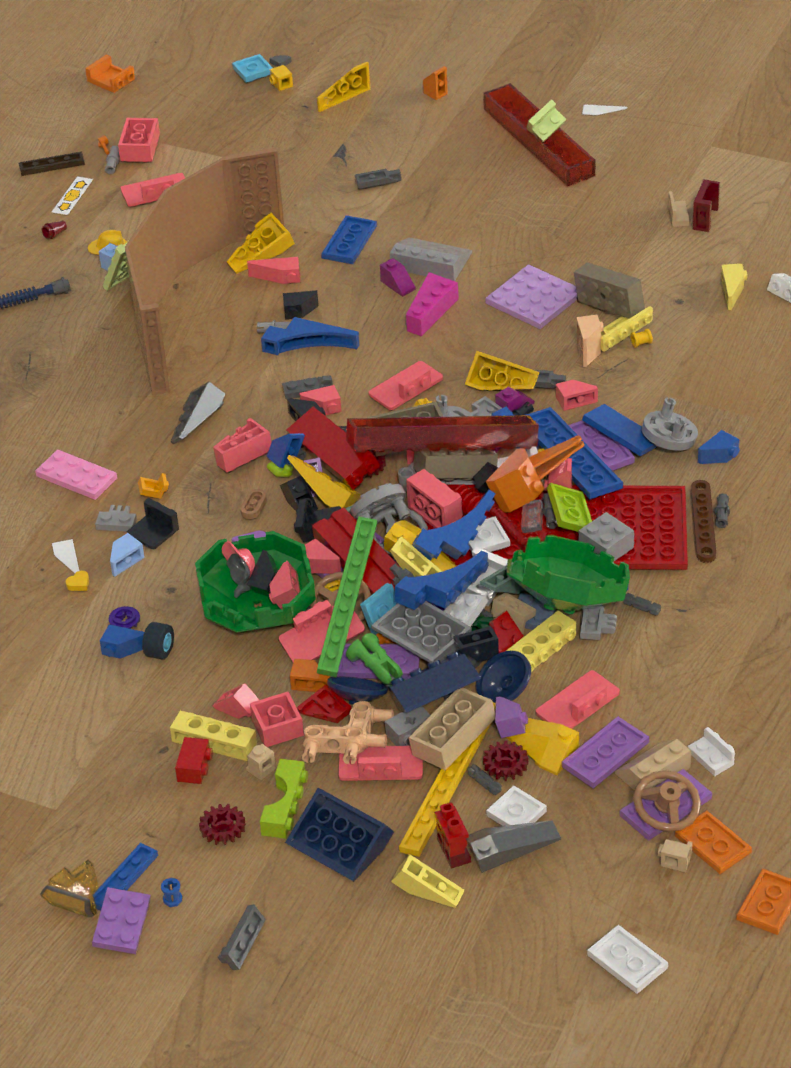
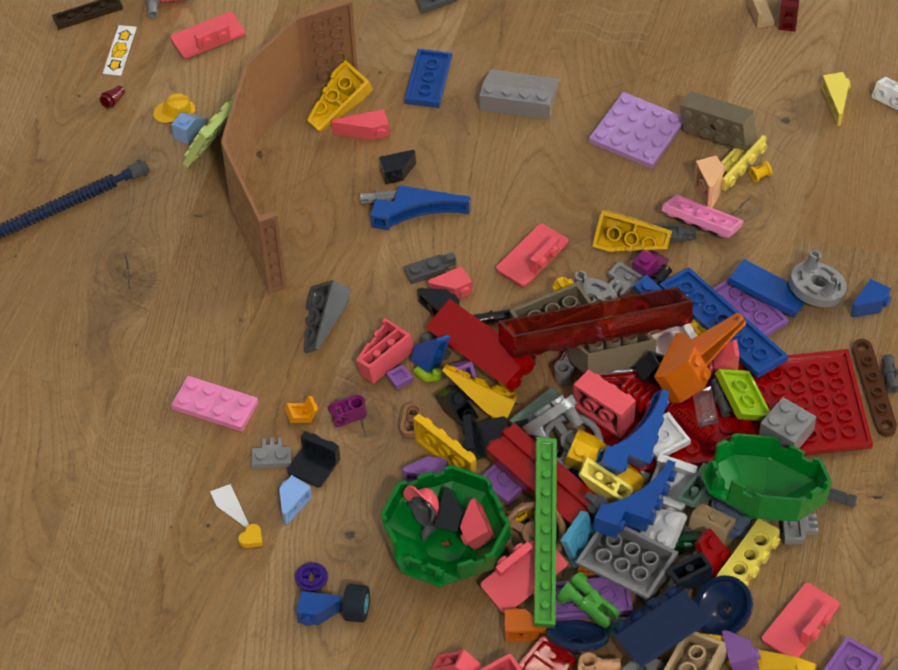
camera: 10 degrees left, 10 degrees up
(198, 489) = (347, 410): none -> magenta piece
(252, 469) = (399, 377): none -> medium lavender plate
(270, 519) = (441, 445): none -> yellow plate
(321, 558) = (503, 483): coral slope -> none
(396, 277) = (491, 122): magenta slope -> none
(430, 303) = (536, 148): dark pink wedge -> none
(574, 366) = (703, 216): none -> bright pink plate
(575, 394) = (710, 248): coral slope -> none

